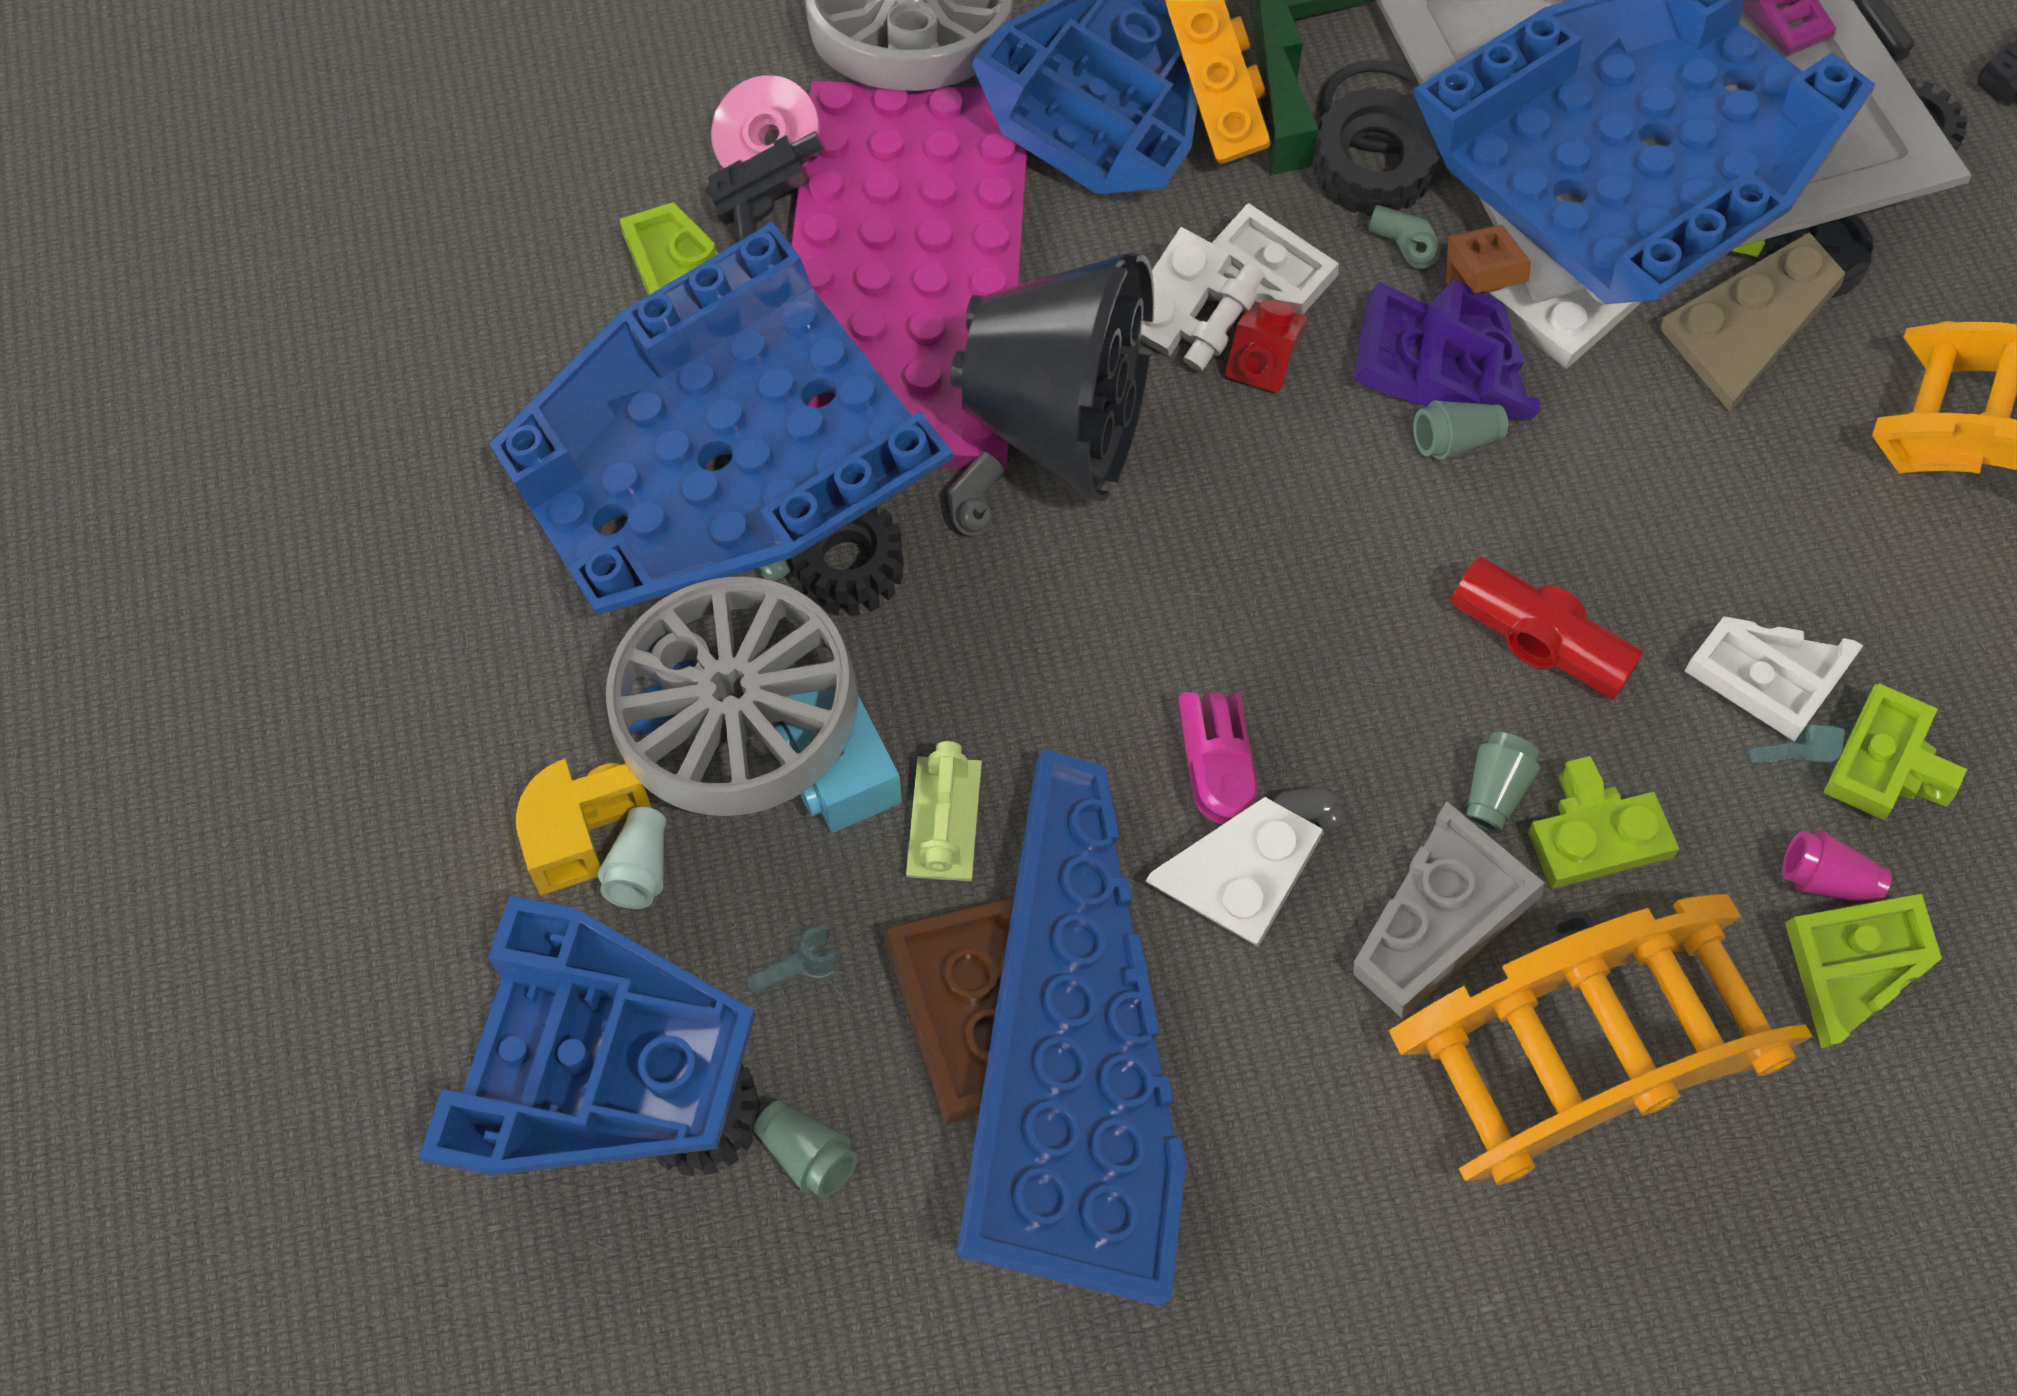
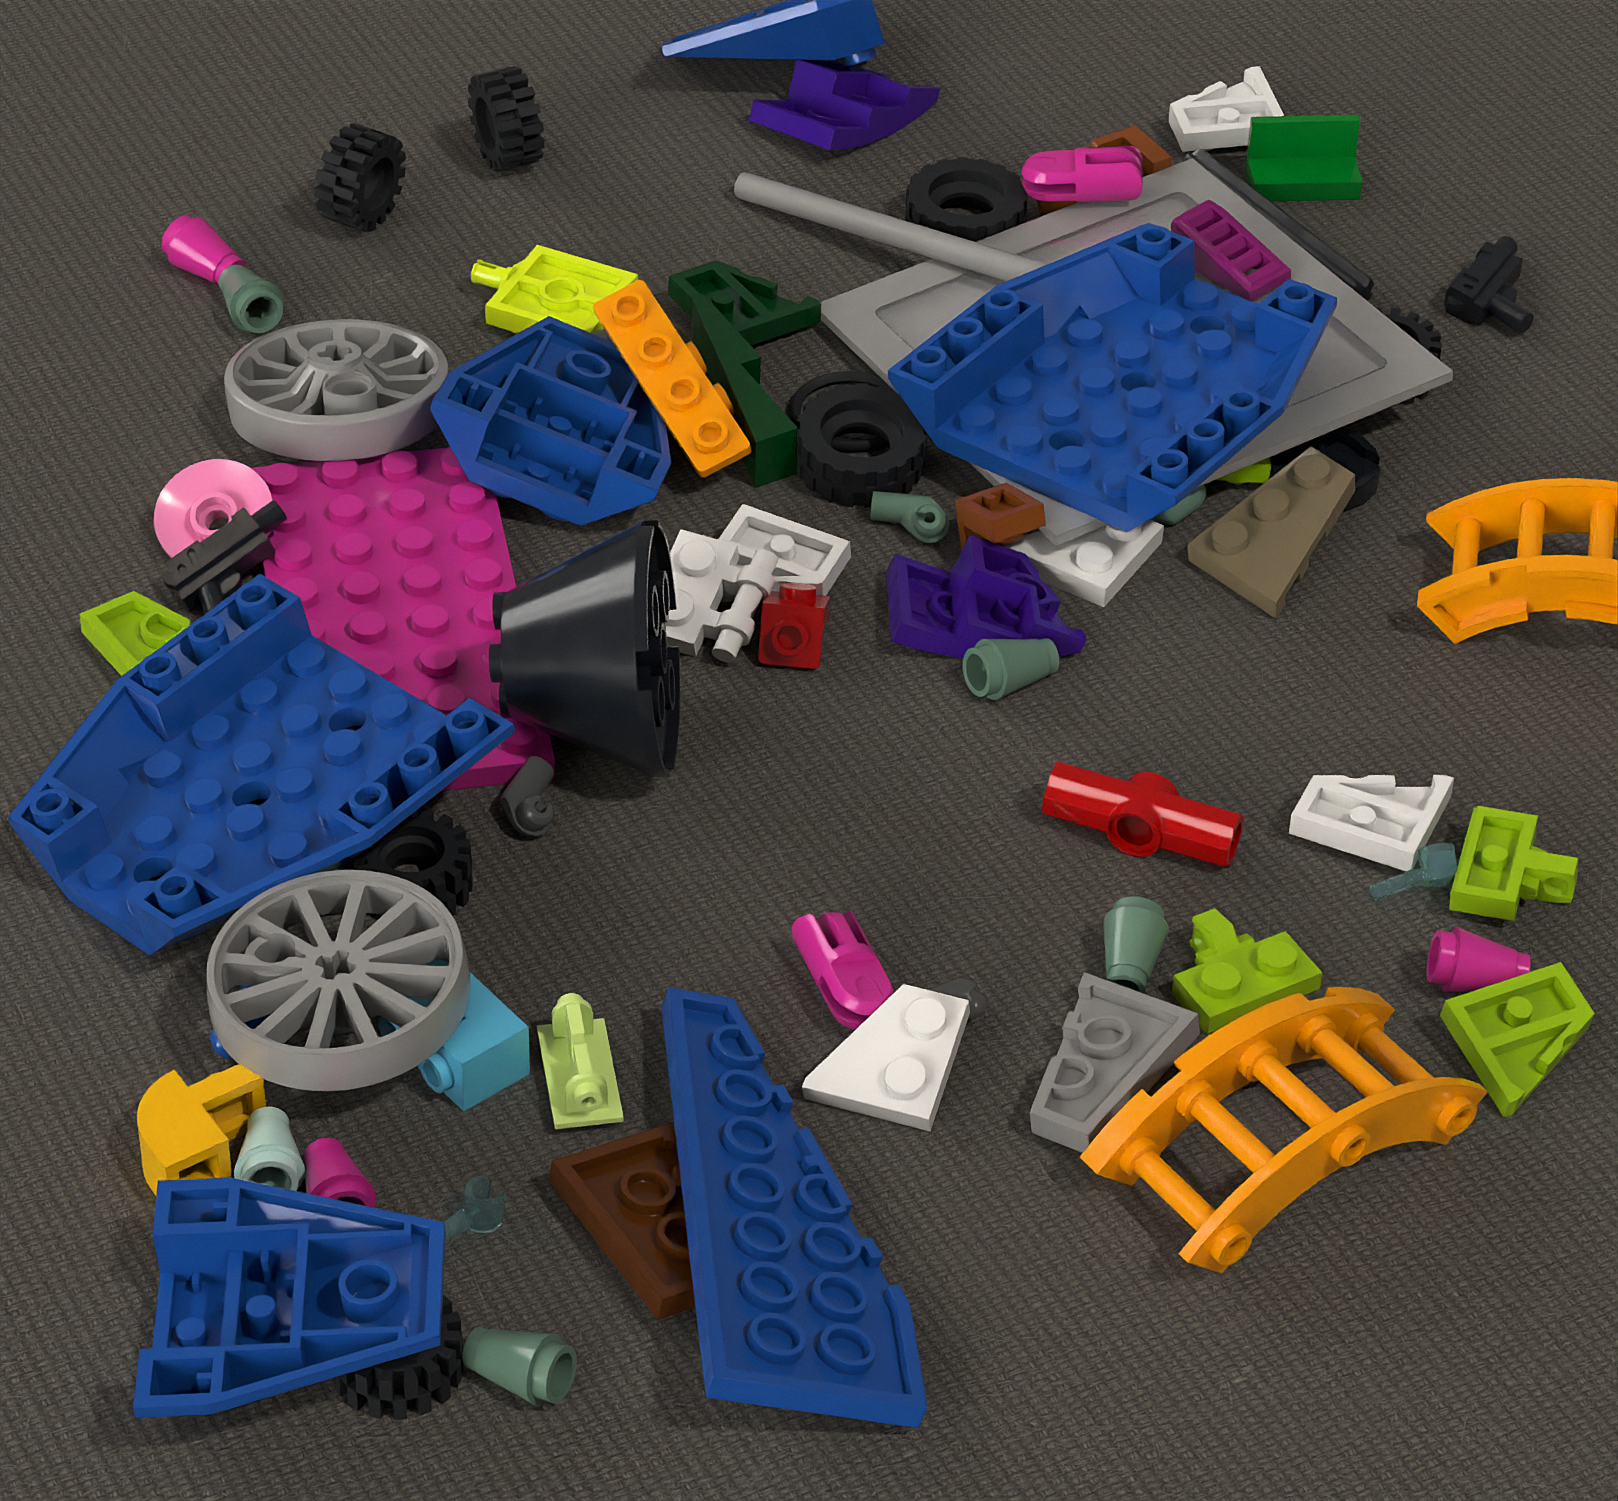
camera: 15 degrees left, 20 degrees down
(687, 909) = (335, 1175): none -> dark pink cone

